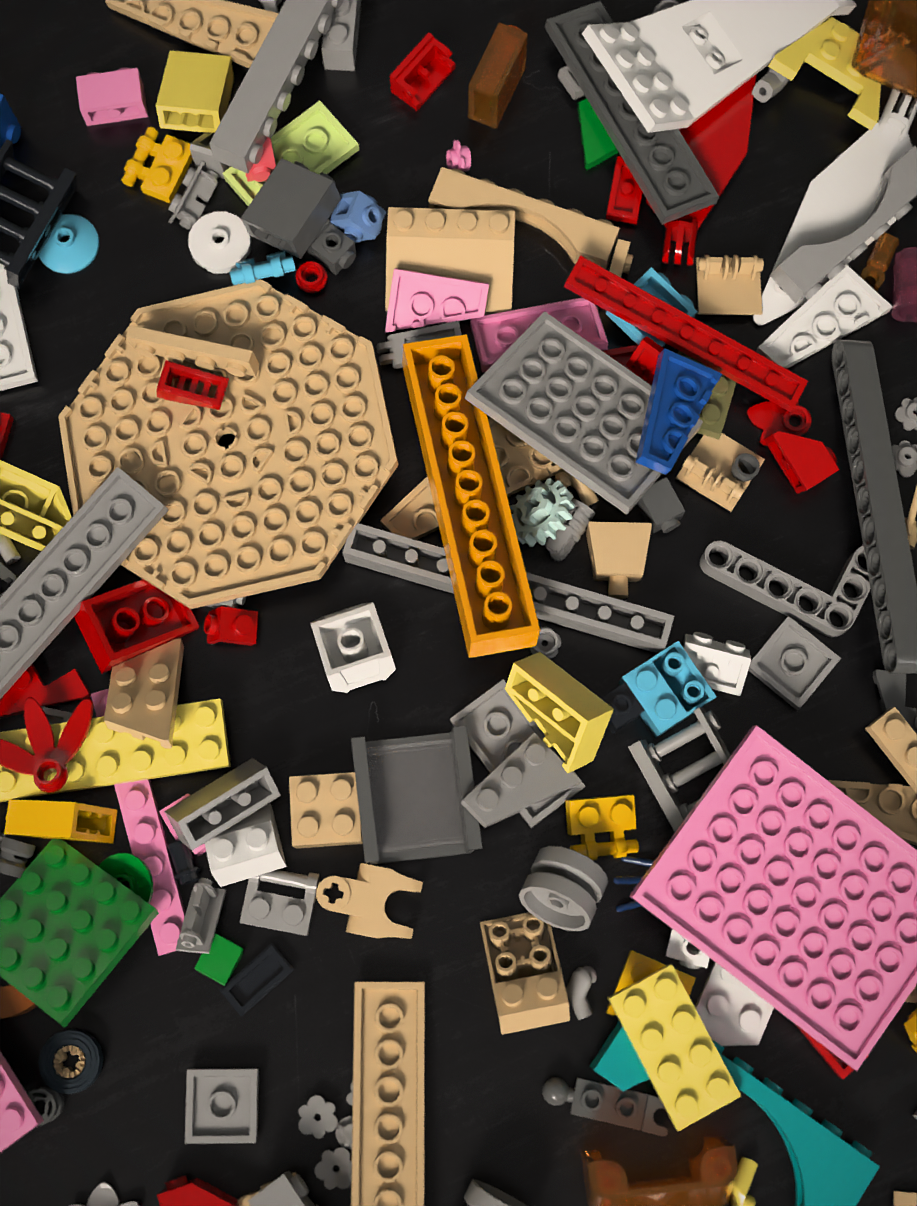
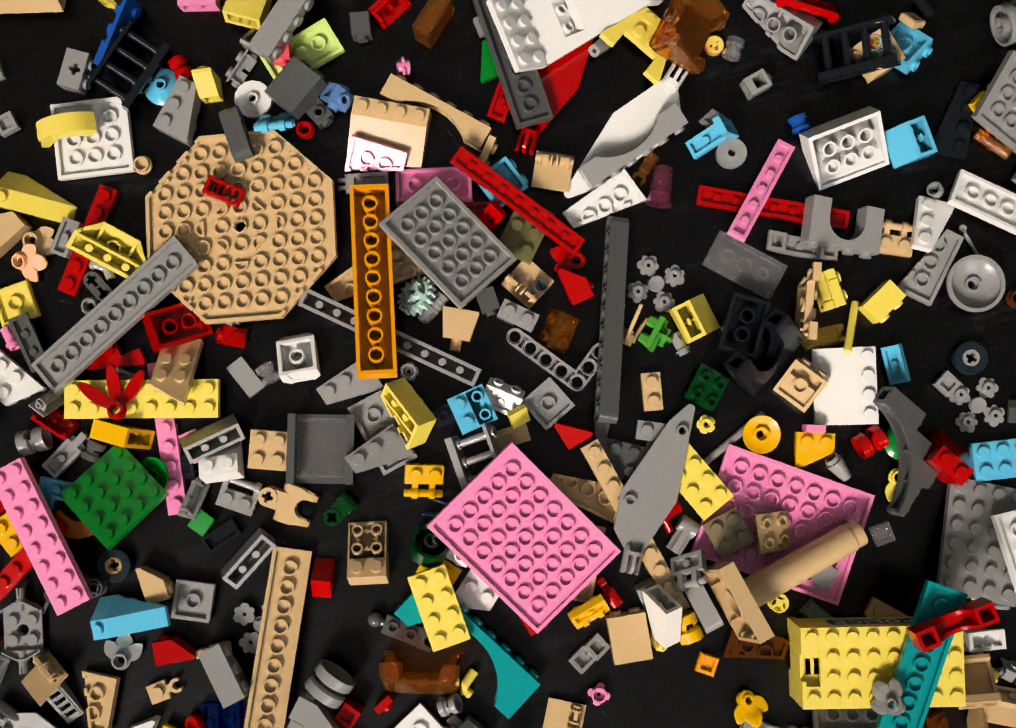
camera: 10 degrees right, 10 degrees up
(48, 368) = (142, 165): none -> tan plate
(93, 204) = (179, 65): none -> red wheel
(102, 275) = (180, 112): none -> light grey wedge
(105, 1149) = (123, 616): none -> medium azure wedge
(143, 224) = (207, 84): none -> light yellow slope
(149, 1087) = (155, 585): none -> tan slope
(167, 169) = (227, 48): yellow plate -> none
(202, 292) = (236, 134): none -> dark grey beam
(202, 353) = (218, 168): tan plate -> none
(265, 692) = (245, 377): none -> light grey tile
(303, 680) = (267, 372): none -> clear wheel
(312, 1010) = (248, 558): none -> light grey brick
(380, 106) = (361, 26): none -> dark grey brick
(446, 679) = (346, 386): none -> light grey wing
(450, 1029) = (323, 577): none -> red slope
(467, 894) = (342, 507): none -> dark green piece
(563, 888) = (394, 513): light grey wheel -> none
(578, 989) = (396, 566): light grey arm -> none
(634, 940) = (425, 554): none -> dark green brick
(673, 408) = (502, 243): blue wing -> none
(716, 521) = (517, 316): none -> light grey brick
(737, 725) = (517, 435): none -> tan plate
(748, 689) = (518, 416): none -> light yellow tile
(788, 539) = (558, 331): none -> clear orange bracket
(848, 708) = (573, 434): none -> red slope

